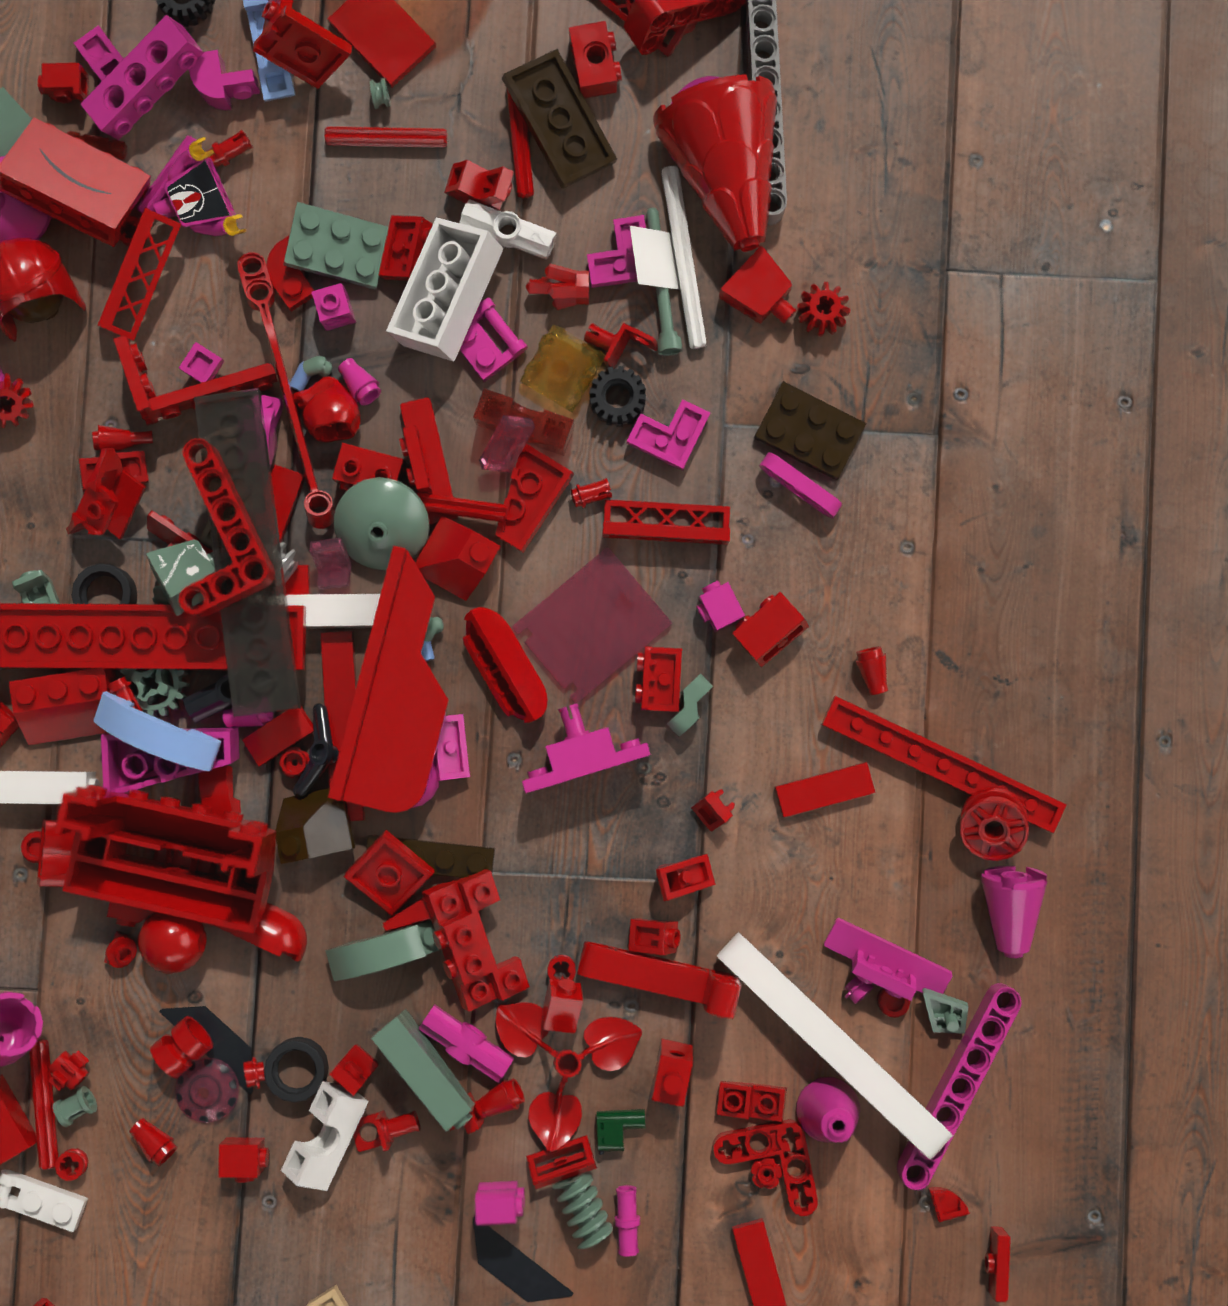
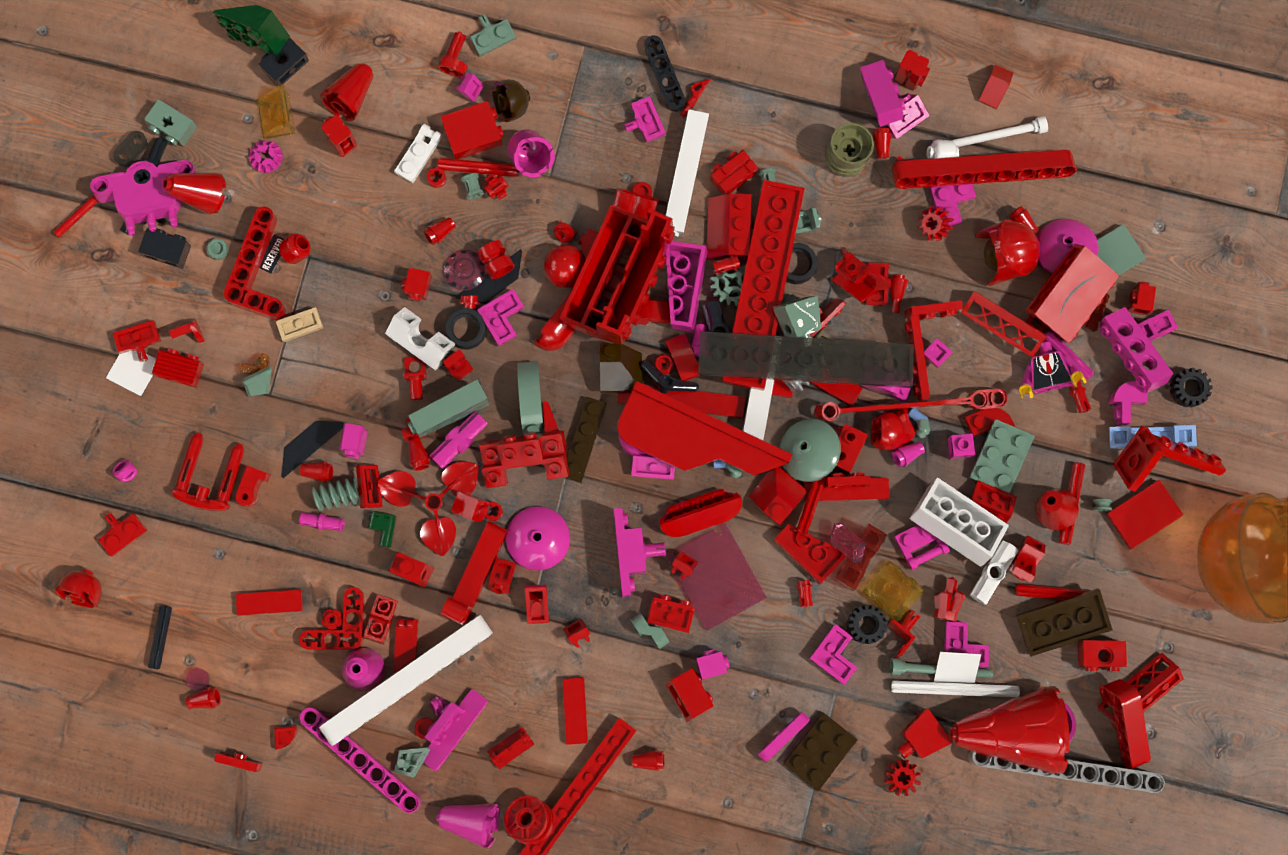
camera: 95 degrees right, 5 degrees down
(155, 735) = (698, 279): light blue slope -> none
(229, 531) = (820, 350): red beam -> none
(264, 1027) = (496, 315): none -> dark pink plate
(331, 562) = (789, 413): clear pink bracket -> none
(389, 873) = (579, 411): red tile -> none
(410, 152) = (1057, 509): none -> red cone
(553, 1244) = (318, 471): none -> red cone
(584, 673) = (685, 564): none -> red tile
(590, 871) = (542, 553): none -> dark pink dish
(669, 532) = (769, 636): red fence -> none
(779, 1056) = (405, 643): none -> red hinge
(896, 872) = (510, 748): none -> red hinge

